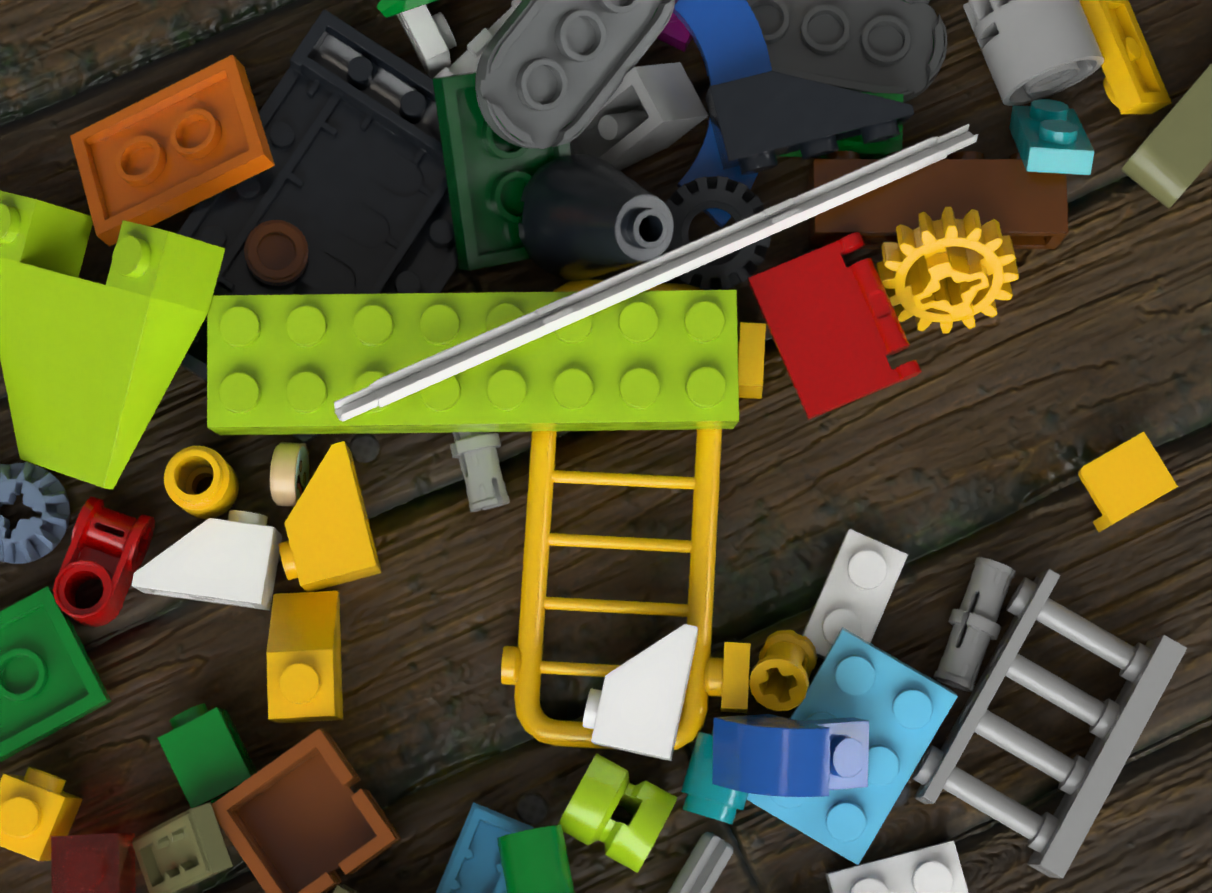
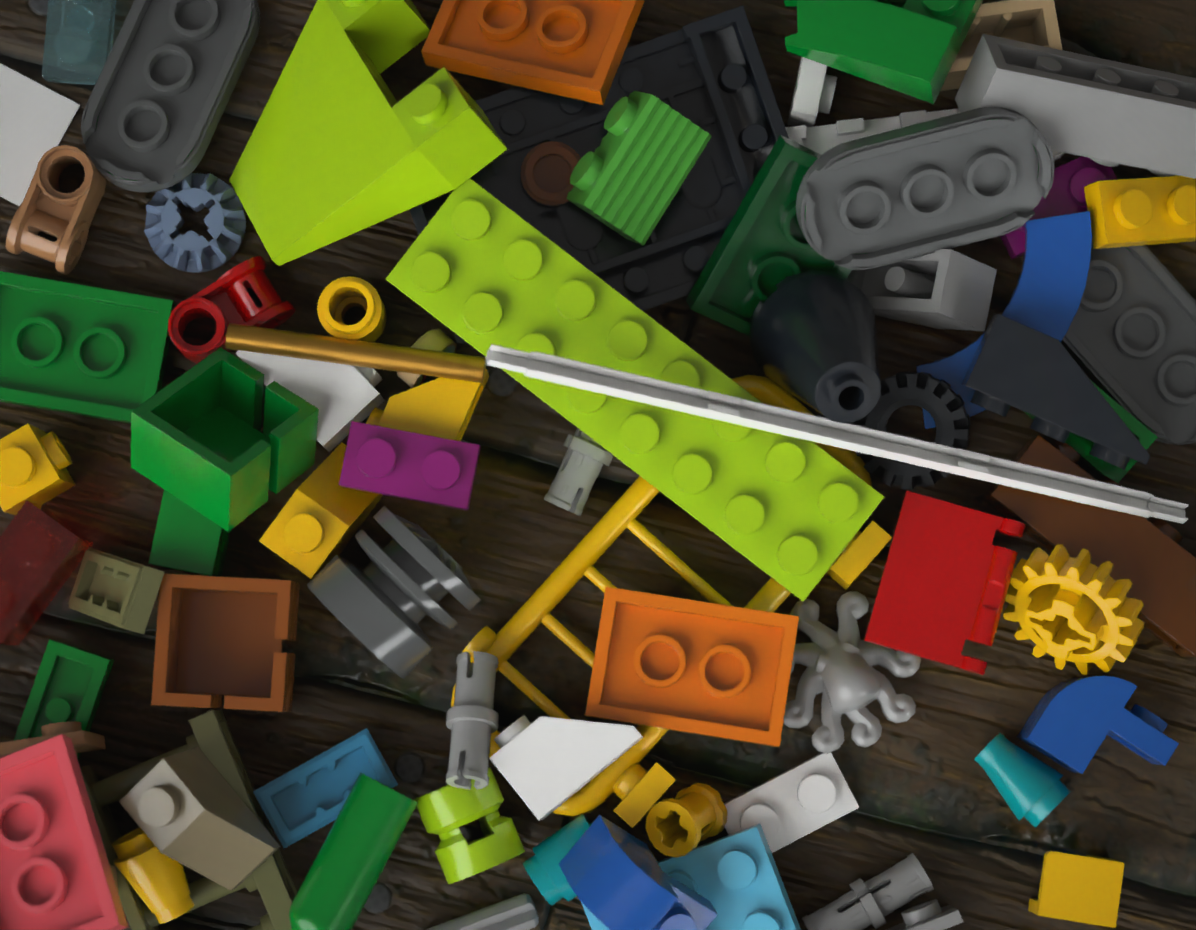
camera: 40 degrees right, 5 degrees up
(163, 676) = (207, 443): none -> green piece
(228, 509) = (355, 352): none -> pearl gold bar
(338, 192) = (637, 165): none -> bright green brick
(343, 563) = (409, 465): none -> magenta plate
(410, 672) = (394, 592): none -> dark grey wheel
(553, 724) = (472, 720): none -> light grey pin
(692, 544) = (692, 666): none -> orange plate
(812, 463) = (843, 672): none -> light grey animal
(1014, 434) = (1022, 780): none -> teal cone
(1019, 345) = (1083, 711): none -> blue brick

